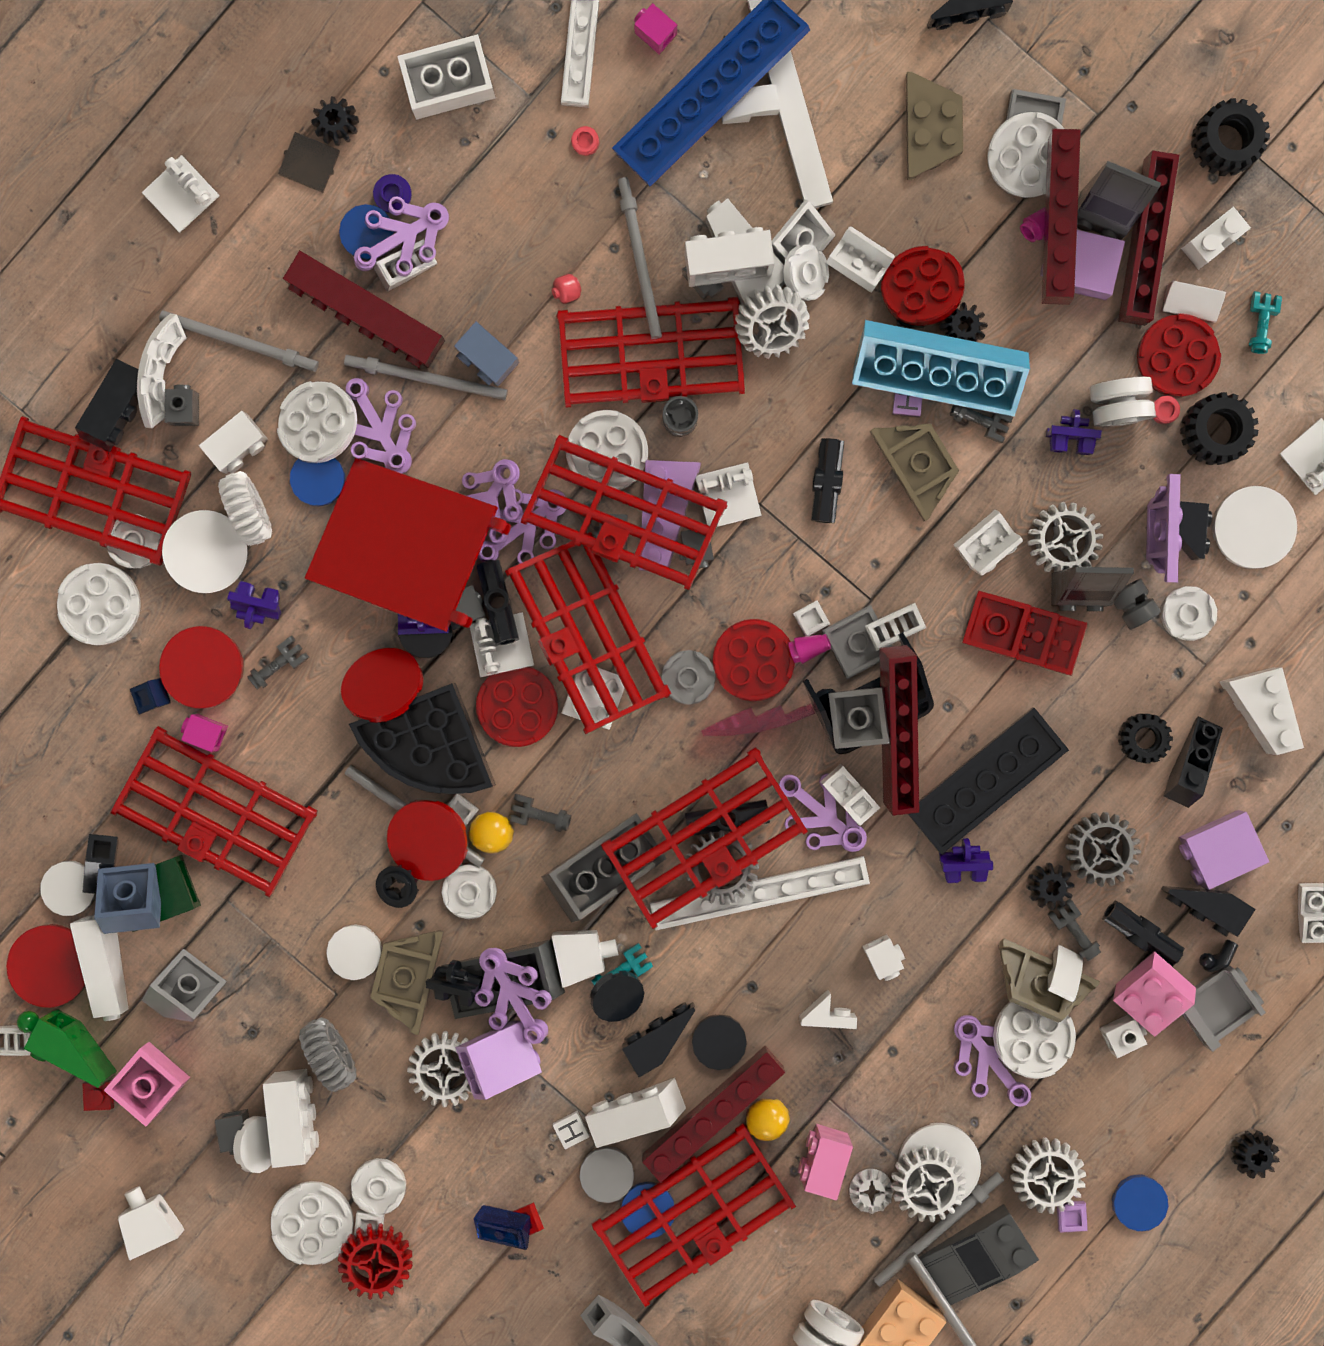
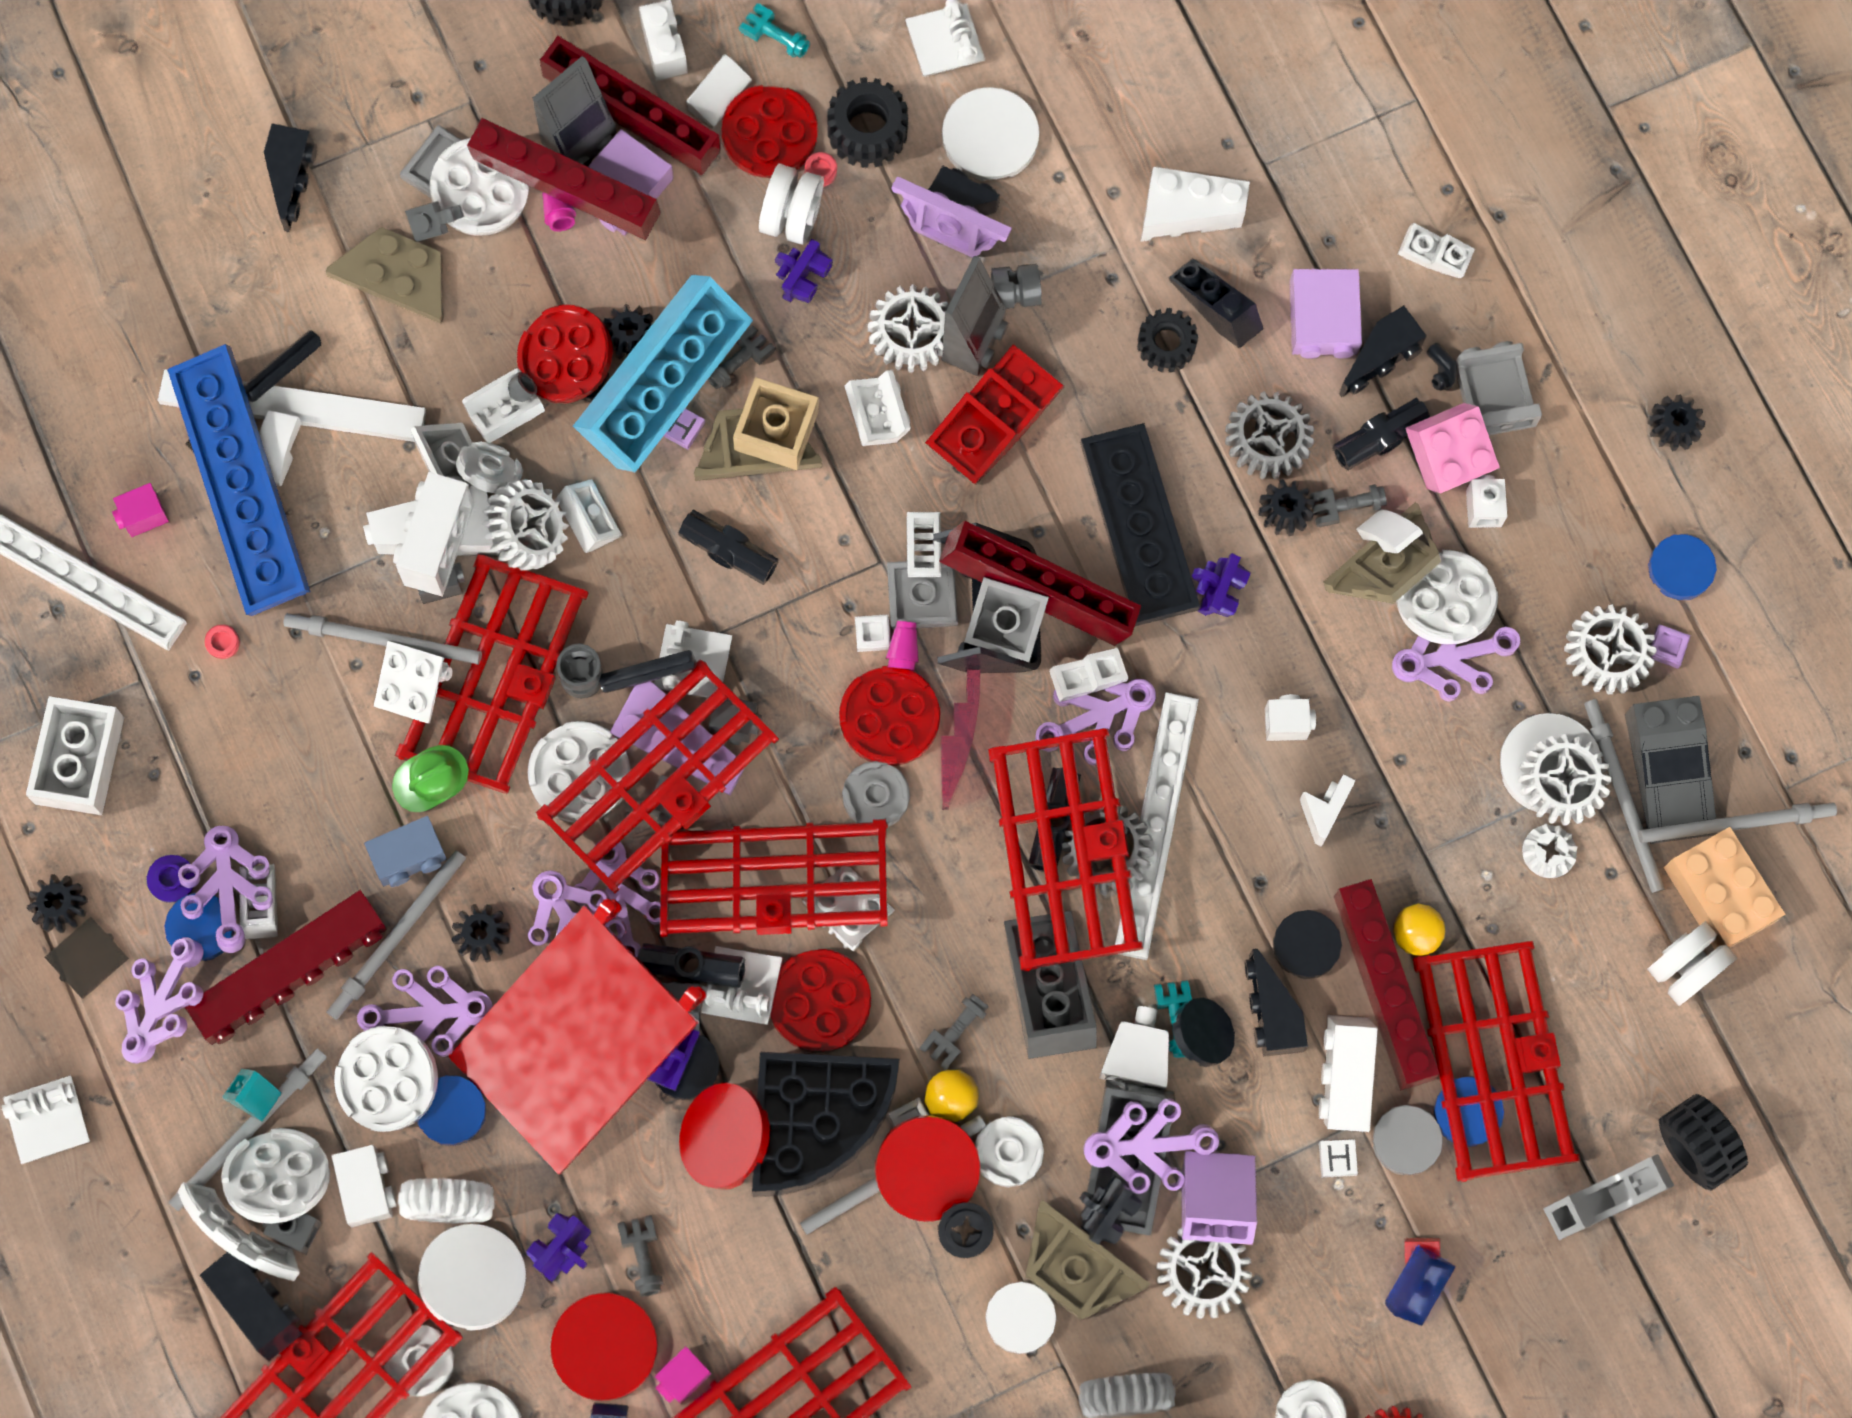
camera: 70 degrees left, 15 degrees down
(210, 377) = (275, 1176): none -> white tile
(260, 330) = (252, 1094): none -> teal slope
(263, 231) = (141, 1037): none -> lavender plant
(449, 429) = (468, 937): none -> black gear
(551, 345) = (430, 778): none -> bright green piece
(566, 288) = (375, 735): coral piece -> none
(614, 295) = (410, 681): none -> white hinge
(700, 467) = (647, 671): none -> black axle
(806, 364) = (588, 515): none -> white slope
(816, 76) = (282, 365): none -> black axle
(825, 1161) = (1492, 880): bright pink brick -> none
(880, 267) = (522, 387): none -> dark grey hinge
(937, 473) = (776, 423): none -> tan brick
(983, 131) = (431, 221): none -> dark grey plate
(1188, 613) = (1052, 239): white tile -> none

